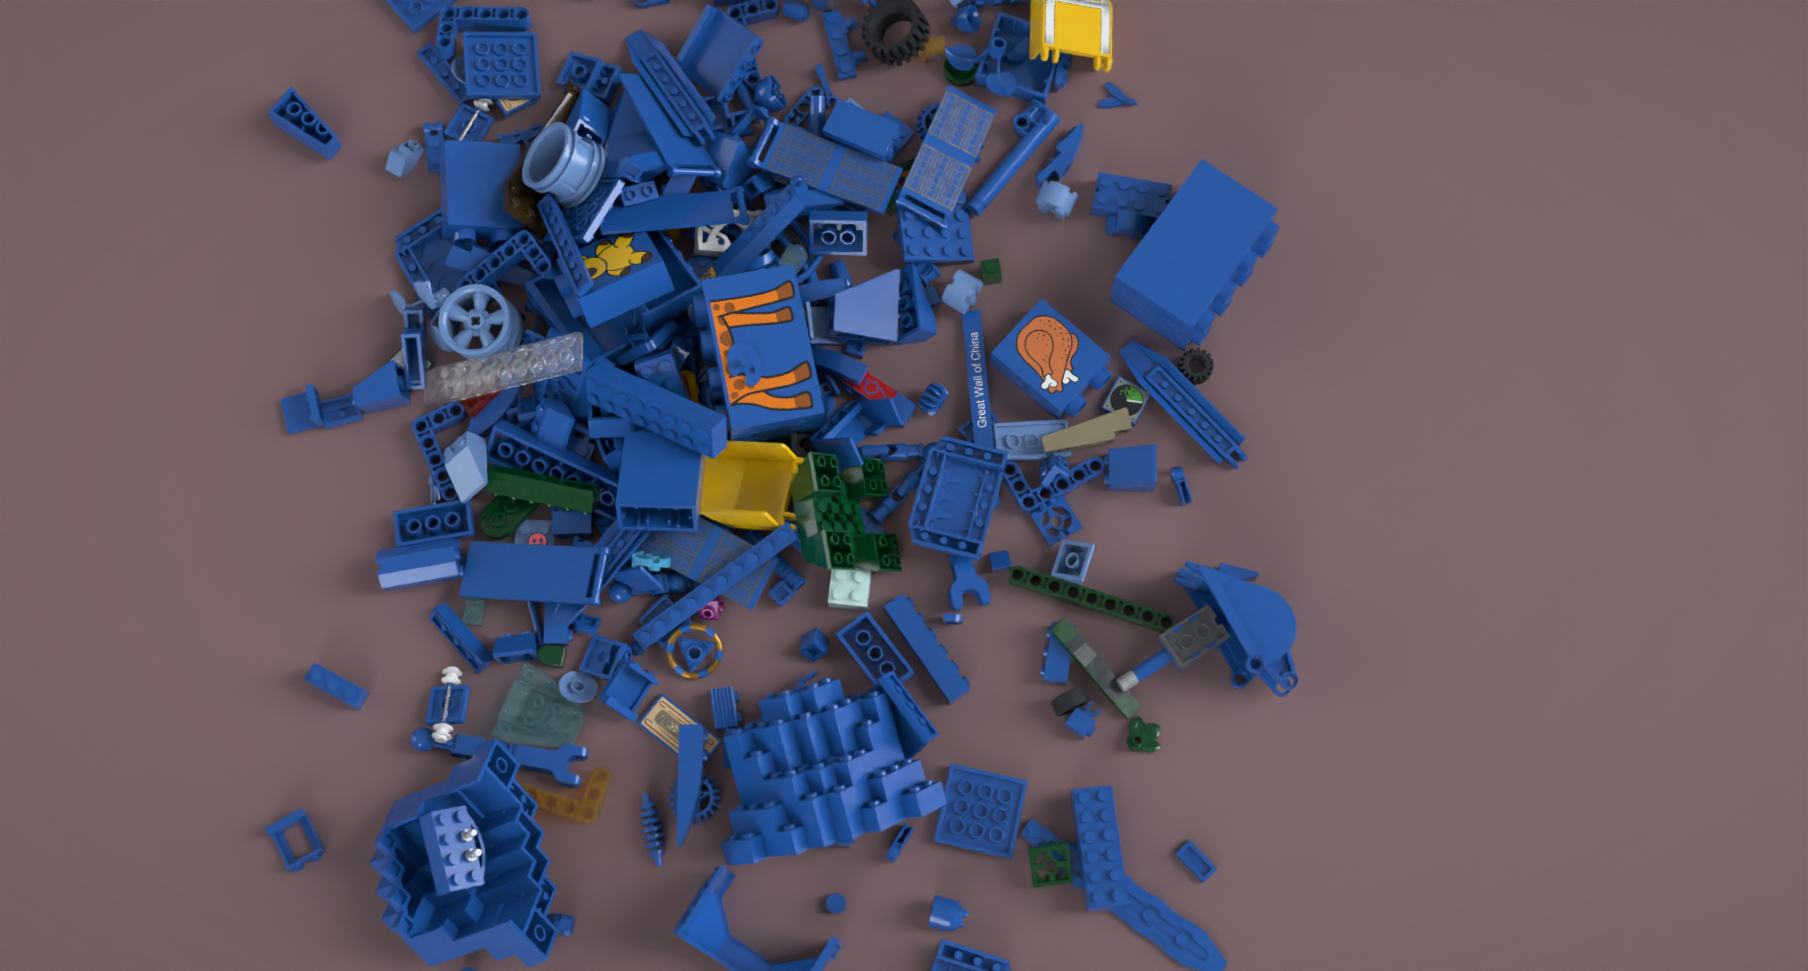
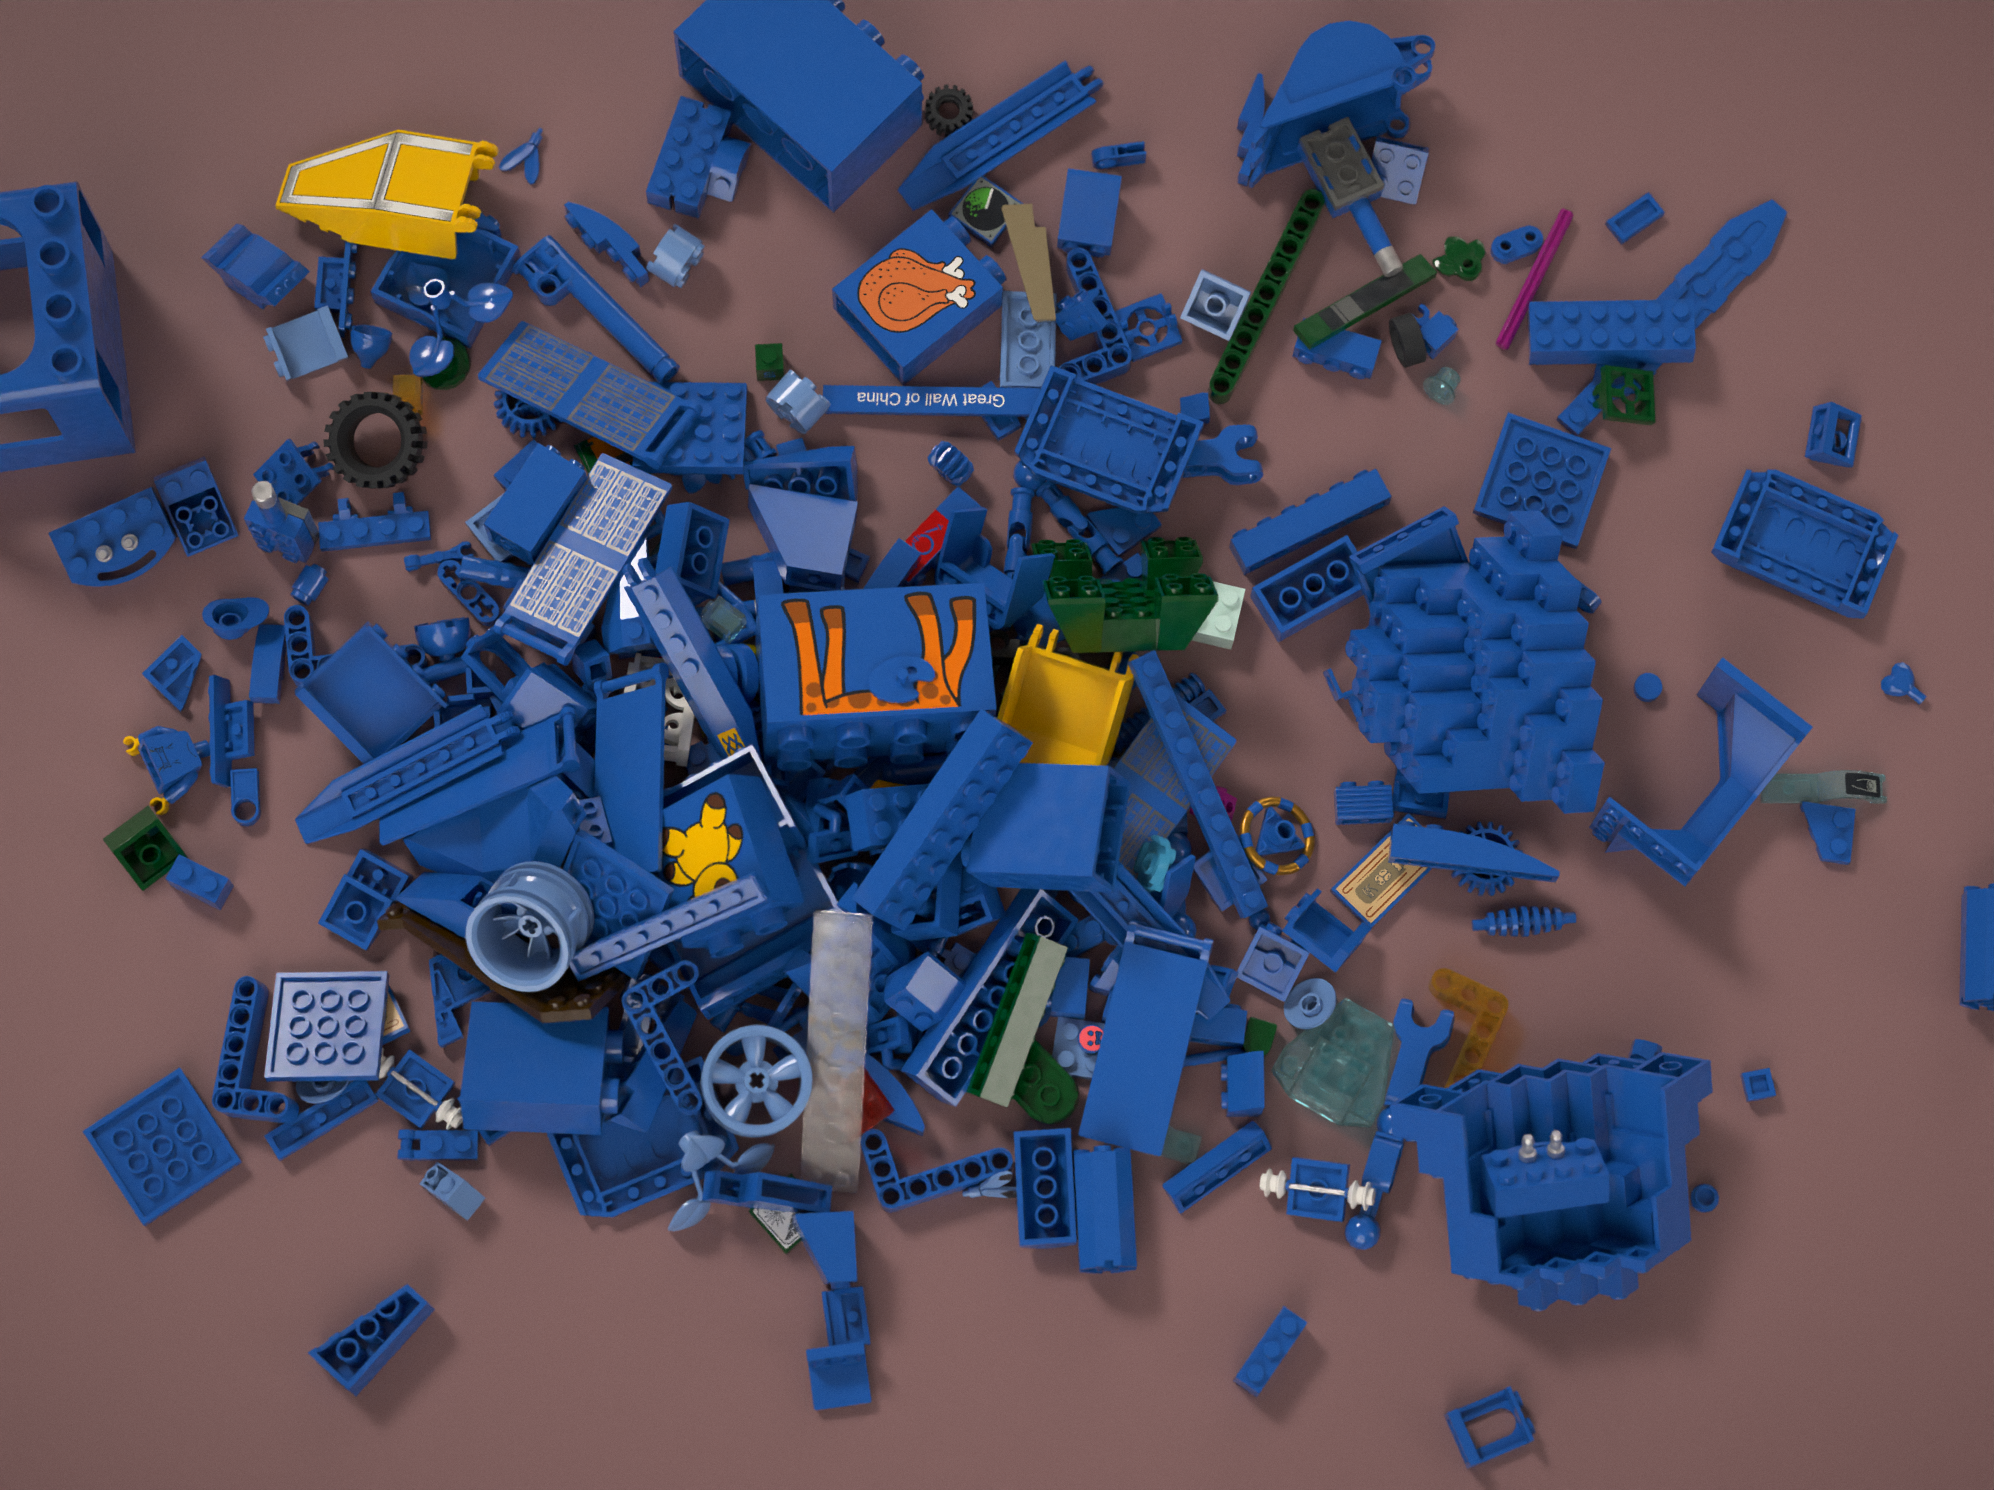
camera: 90 degrees left, 0 degrees up
(467, 465) = (968, 1125): medium blue slope -> none
(648, 345) = (836, 837): blue beam -> none
(814, 644) = (1285, 672): blue panel -> none
(899, 522) = (1123, 528): none -> blue wing
(946, 914) = (1678, 542): blue piece -> none
(952, 619) = (1271, 482): blue tile -> none
(1042, 732) = (1442, 386): none -> clear light blue piece
(1136, 791) = (1534, 279): none -> magenta axle
(1161, 775) = (1518, 244): none -> blue plate
(1205, 682) = (1400, 168): none -> blue bracket

